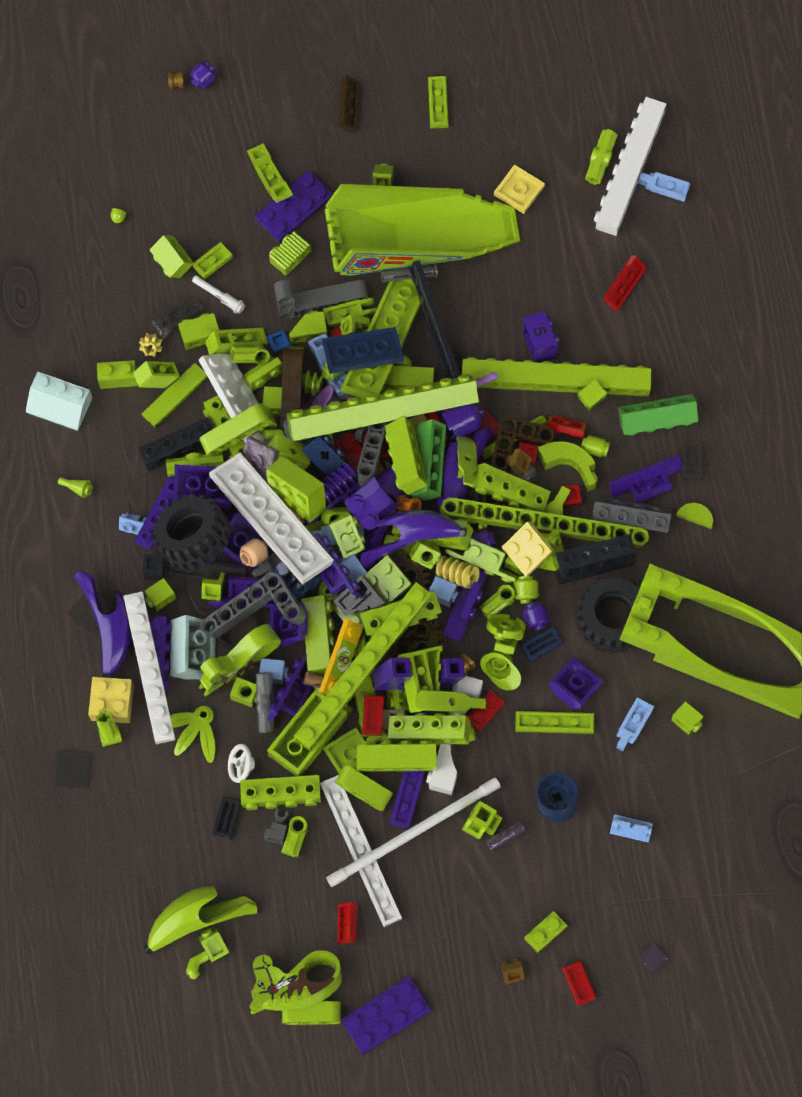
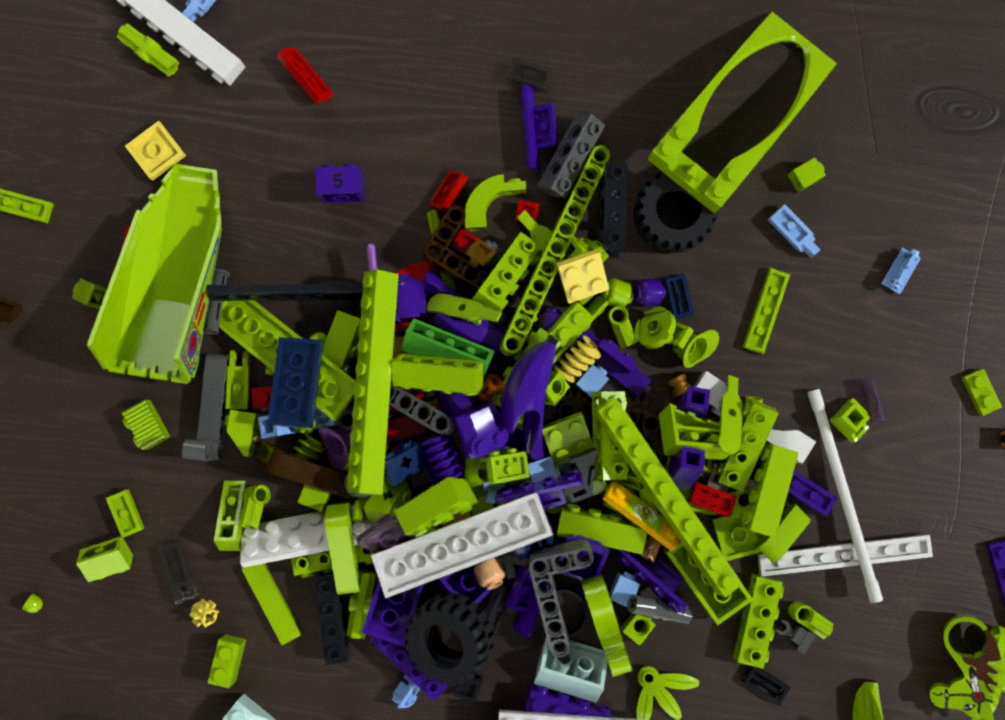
camera: 80 degrees left, 15 degrees up
(156, 374) = (243, 619): lime brick -> none
(159, 595) = (499, 686): lime brick -> none
(197, 330) = (204, 554): lime brick -> none
(213, 588) = (512, 626): lime panel -> none
(236, 305) = (188, 502): white pin -> none
(243, 764) = (716, 651): white piece -> none
(263, 373) = (280, 503): lime bracket -> none
(268, 173) = (40, 418): lime slope -> none
(278, 341) = (246, 468): blue tile -> none
(292, 212) = (90, 402): dark purple plate -> none
(347, 923) = (917, 593): red plate -> none
(354, 324) = (256, 382): lime bracket -> none
(481, 717) = (729, 367): red plate -> none
(552, 787) = (867, 334): dark blue wheel -> none
(560, 377) = (390, 179): lime brick -> none
(575, 684) = (736, 275): dark purple slope -> none
(592, 395) = (423, 152): lime panel -> none
(595, 446) = (481, 168): lime brick -> none
(658, 414) = (468, 90): bright green brick -> none
(697, 514) = (588, 90): lime tile -> none

